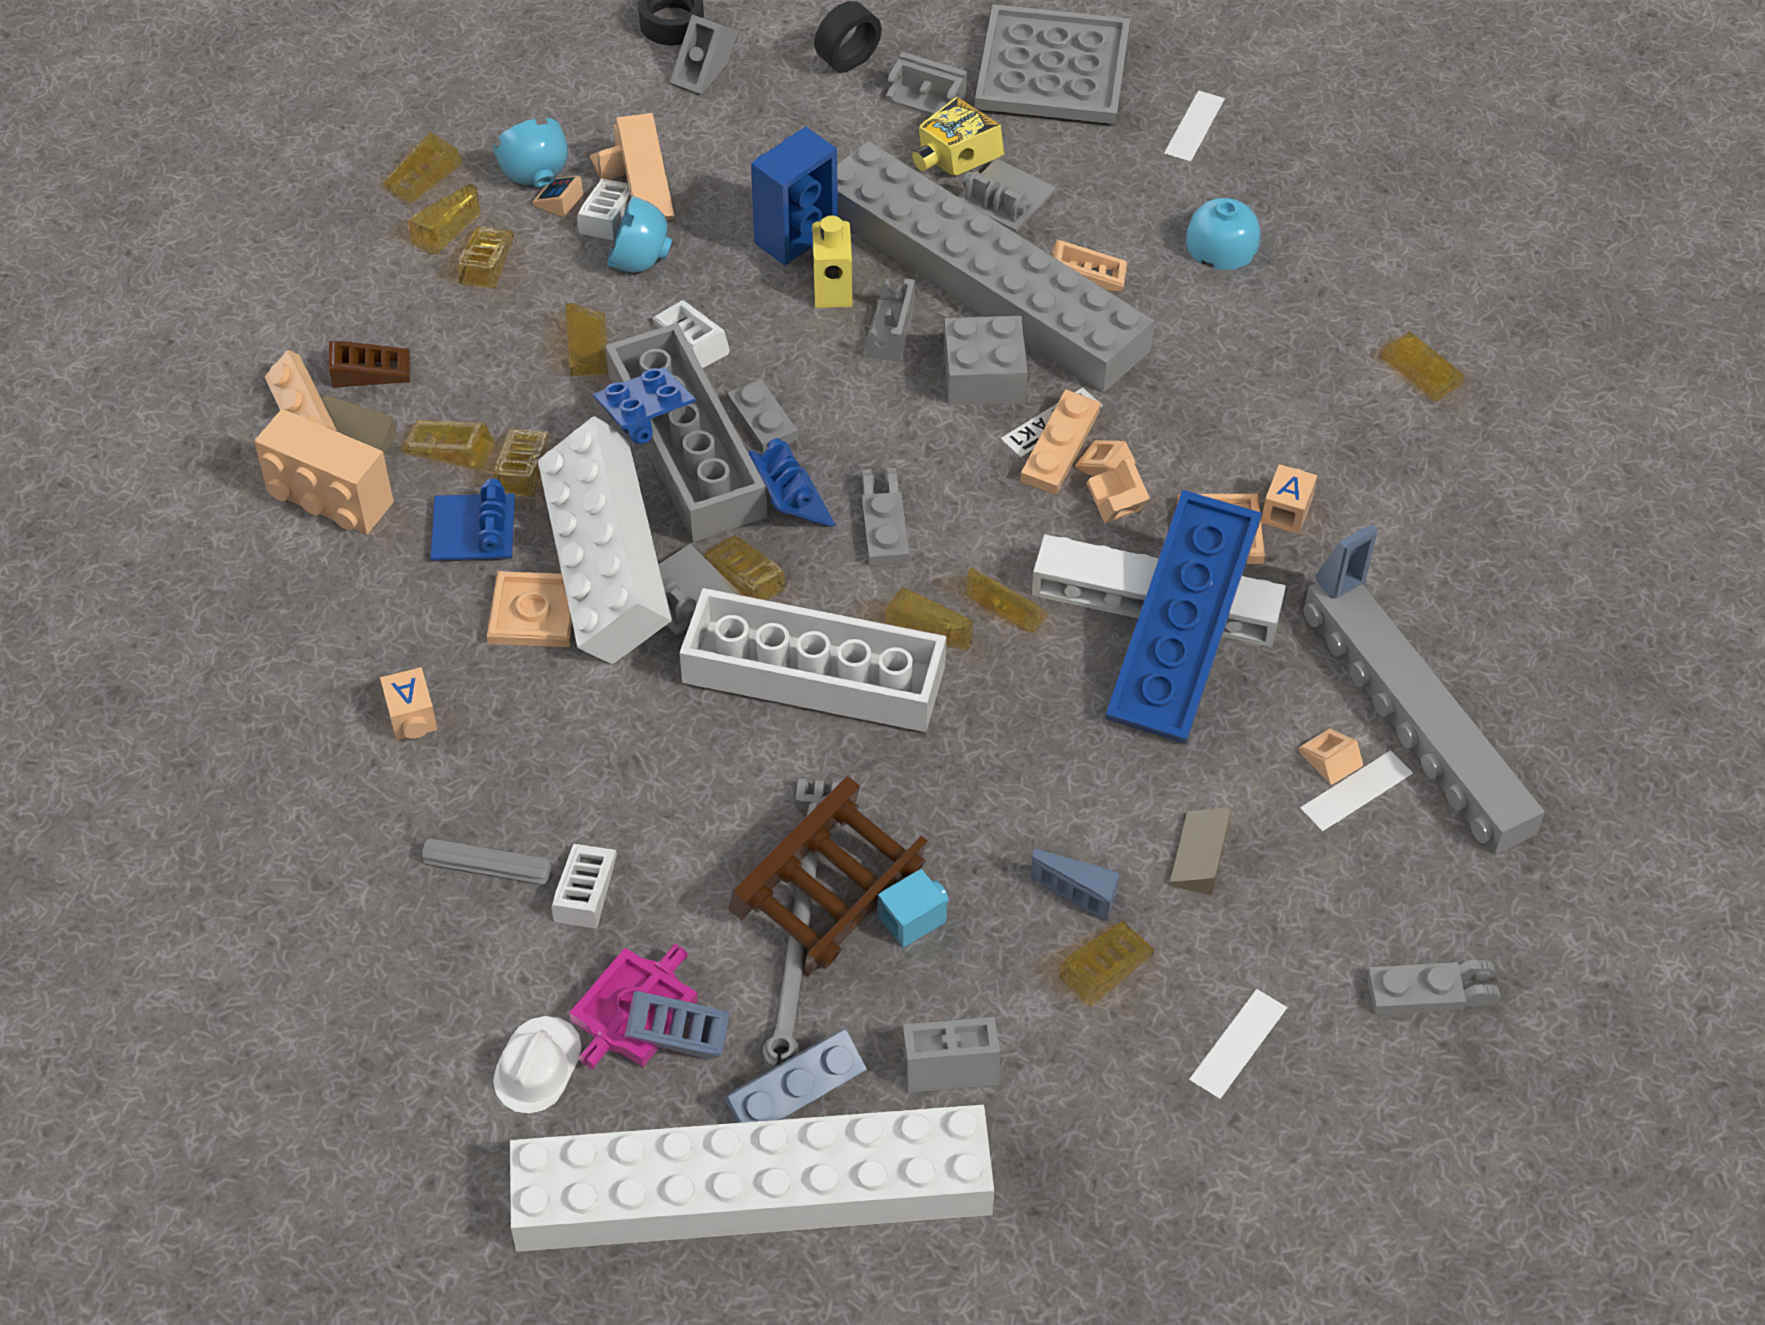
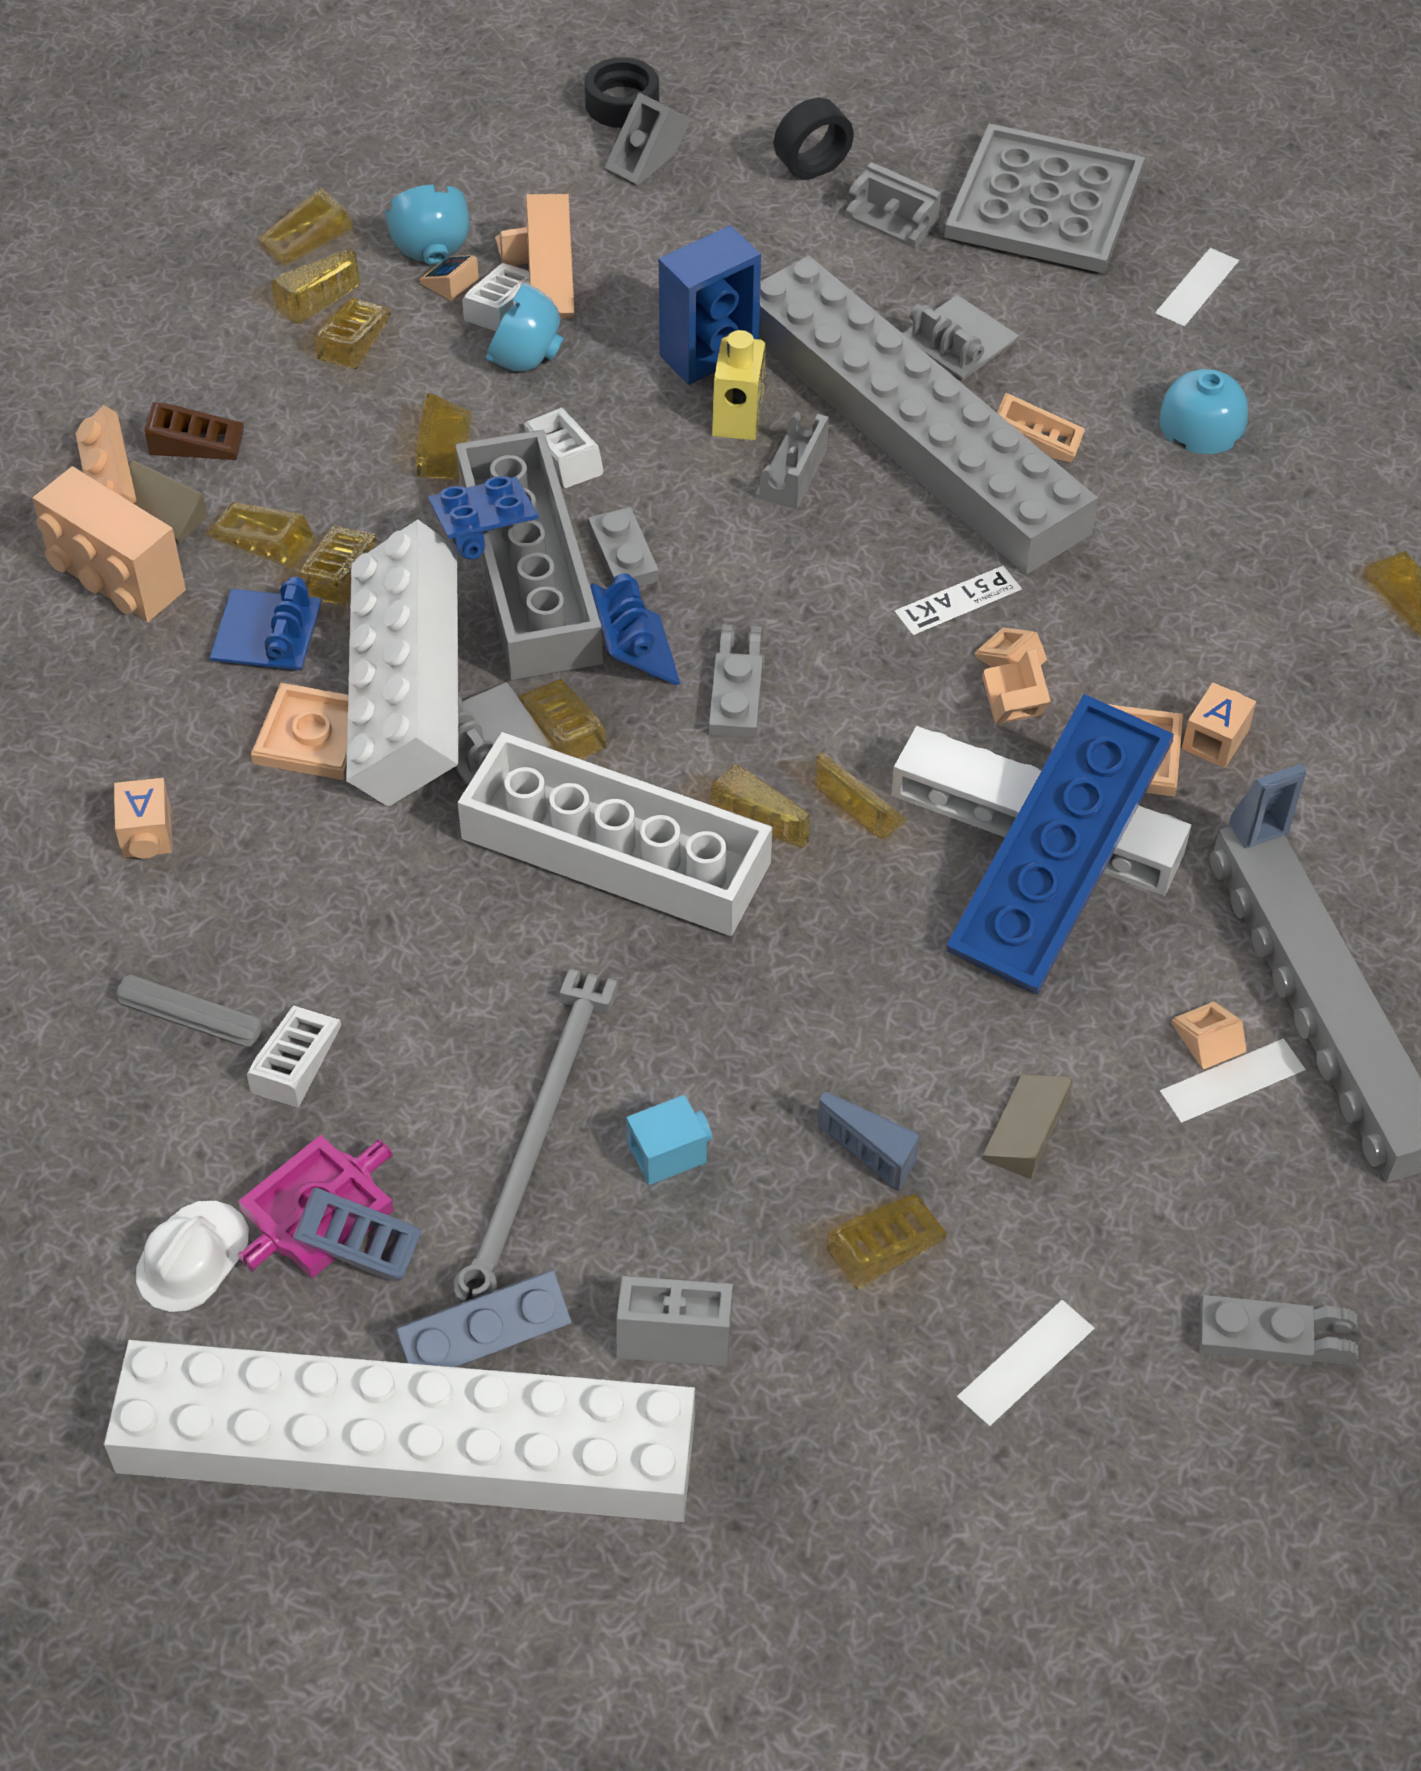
camera: 10 degrees right, 0 degrees up
(785, 865) = (567, 1037): reddish brown fence -> none
(958, 139) = (915, 267): light yellow torso -> none
(985, 360) = (891, 519): light grey brick -> none
(1060, 442) = (962, 623): light nougat plate -> none

